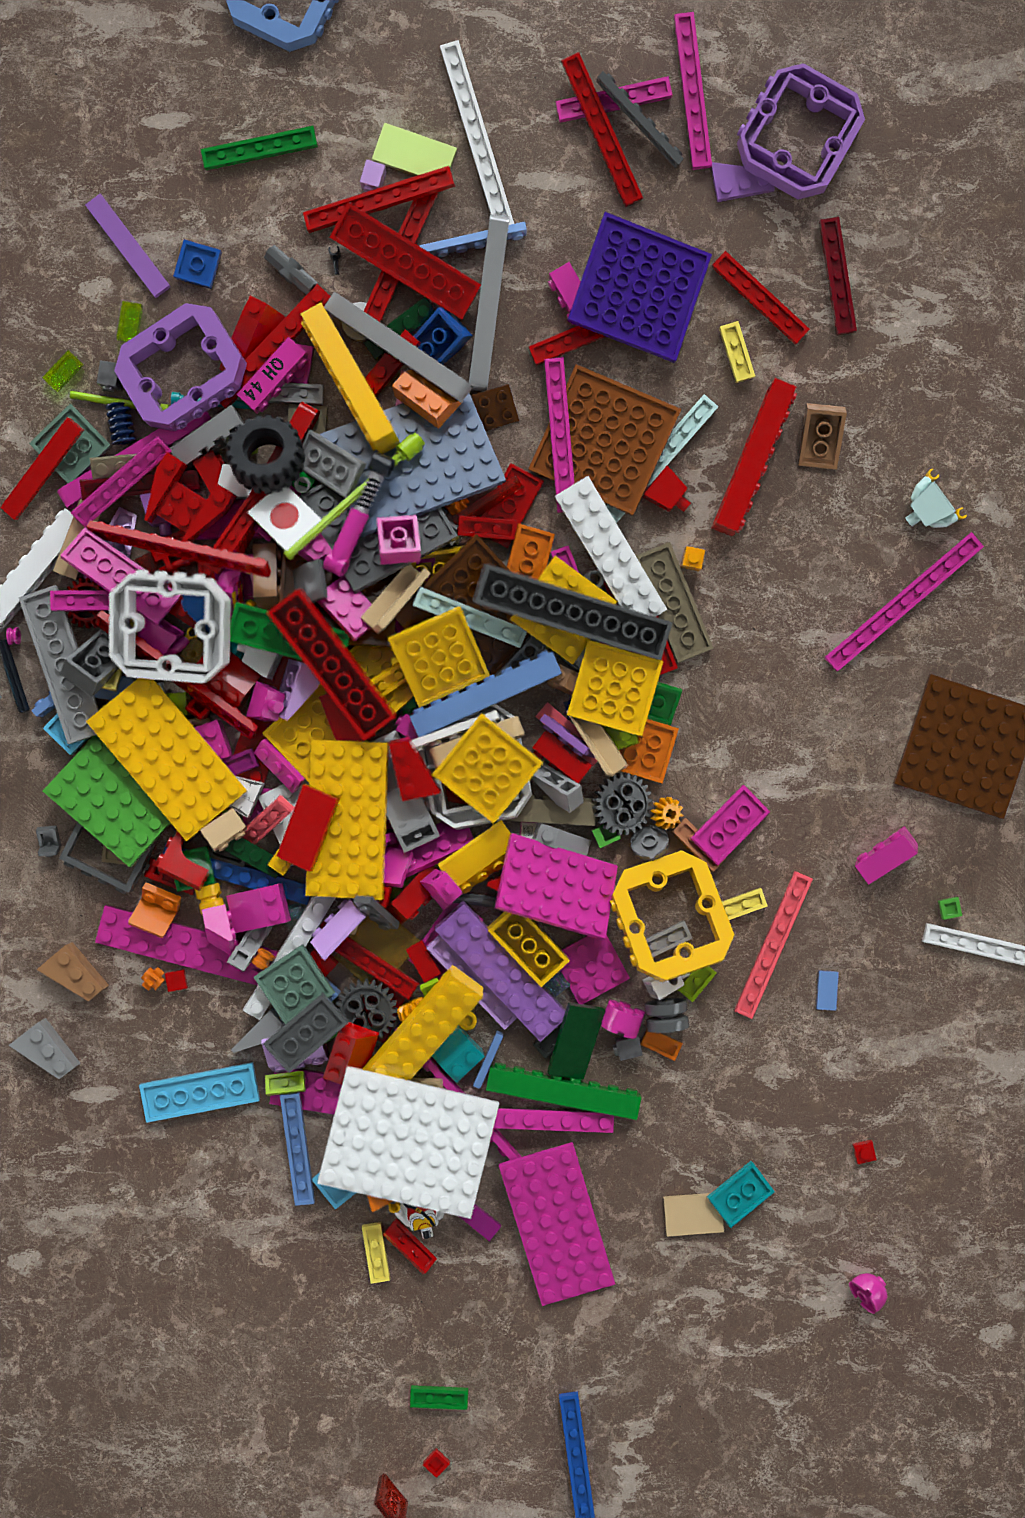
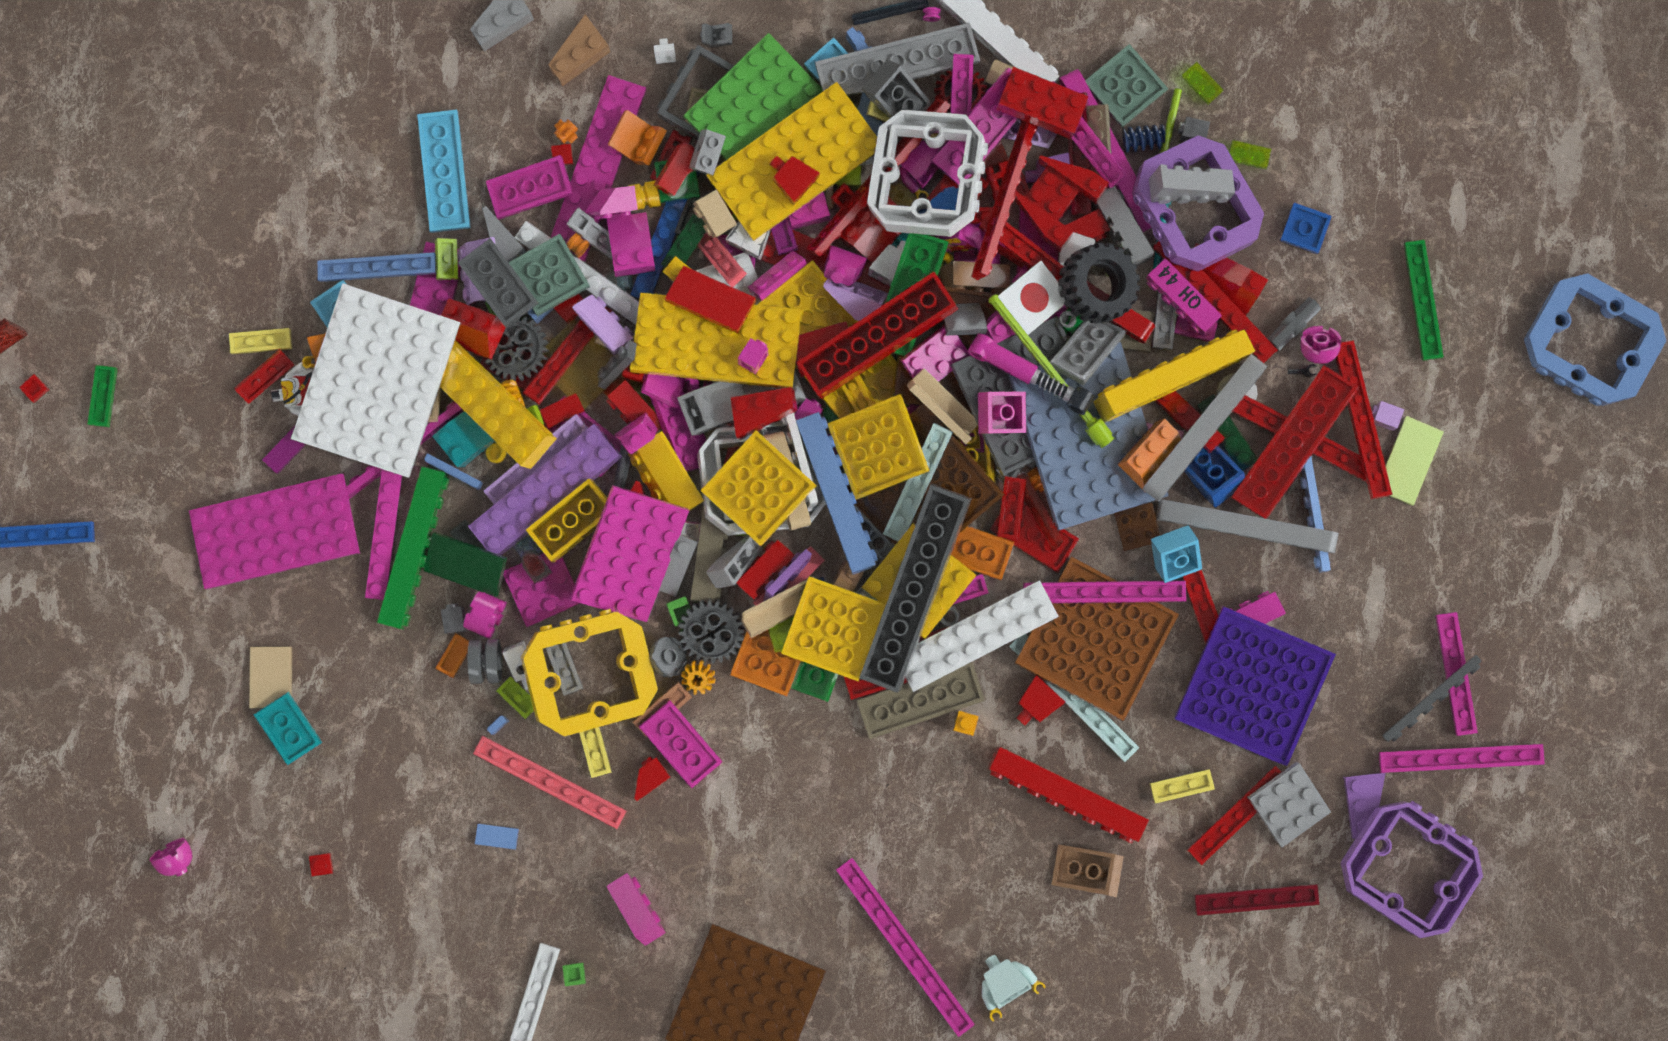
camera: 95 degrees right, 5 degrees down
(42, 468) = (1102, 55): red tile -> none
(68, 889) = (664, 52): none -> white tile
(92, 520) = (1042, 102): none -> red brick
(128, 245) = (1329, 158): medium lavender tile -> none
(163, 372) = (1191, 185): none -> light grey wedge
(163, 841) = (707, 152): none -> light grey brick
(183, 756) = (793, 177): none -> red torso
(210, 1009) = (529, 187): none -> dark pink plate
(309, 242) = (1320, 345): none -> dark pink cylinder
(360, 782) = (753, 355): none -> dark pink brick
(475, 130) = (1428, 526): white plate -> none
(520, 368) = (1176, 554): none -> medium azure brick
(573, 975) = (535, 566): none -> rock
(601, 129) = (1424, 658): red tile -> none
(723, 997) = (497, 724): none -> medium blue tile
(747, 250) = (1289, 804): none -> light grey plate
(763, 850) = (650, 777): none -> red slope

